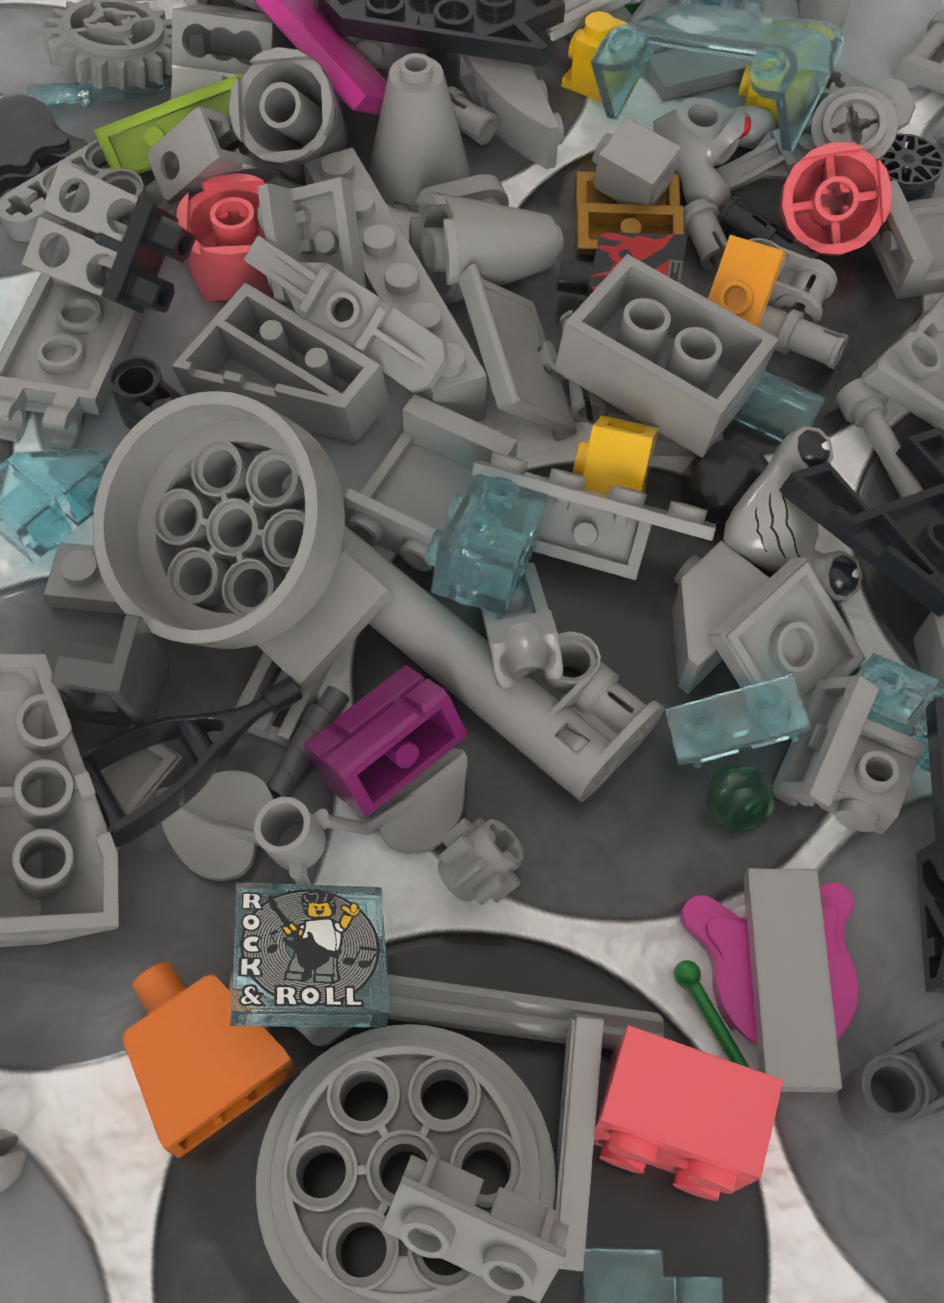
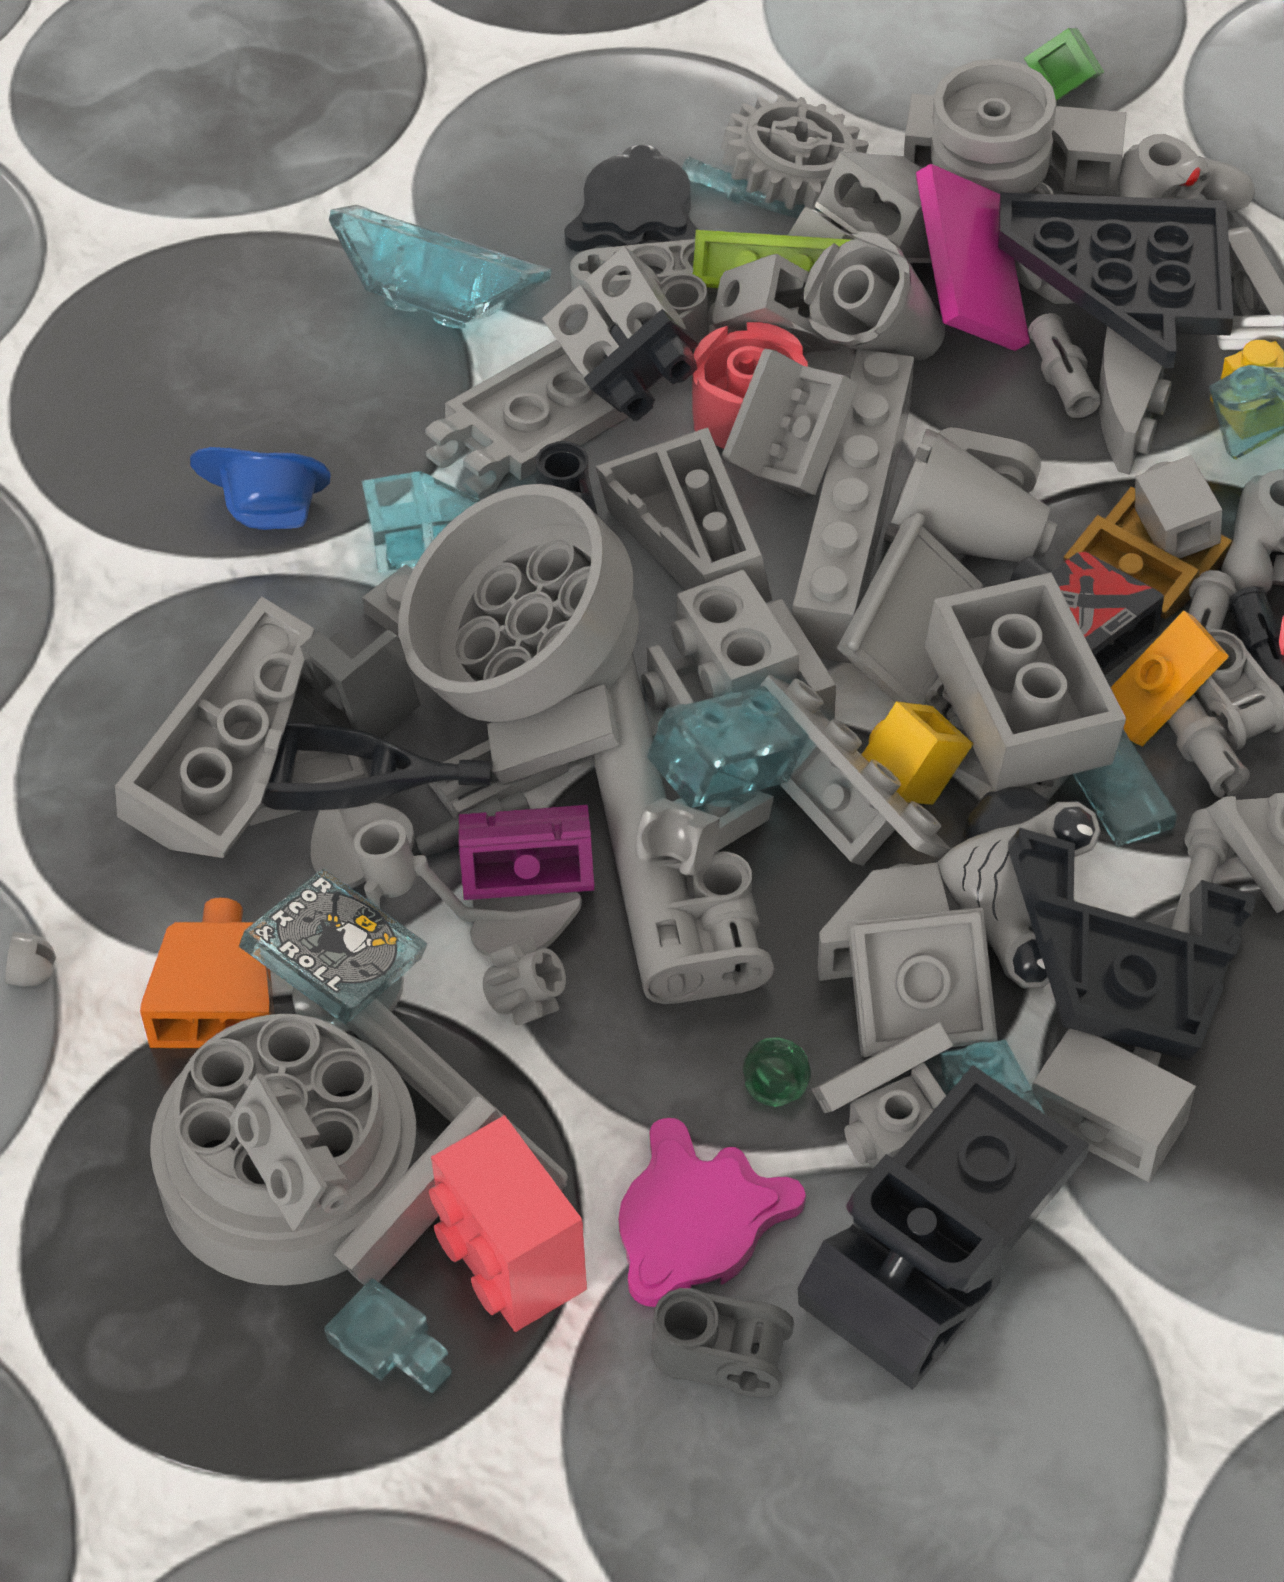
camera: 40 degrees right, 10 degrees down
(375, 329) = (783, 521): light grey piece -> none
(409, 443) = (732, 636): none -> light grey brick
(416, 133) = (991, 375): light grey cone -> none
(688, 975) = (599, 1270): green hinge -> none
(736, 720) = (800, 1004): clear light blue hinge -> none
(791, 979) = (686, 1210): light grey tile -> none

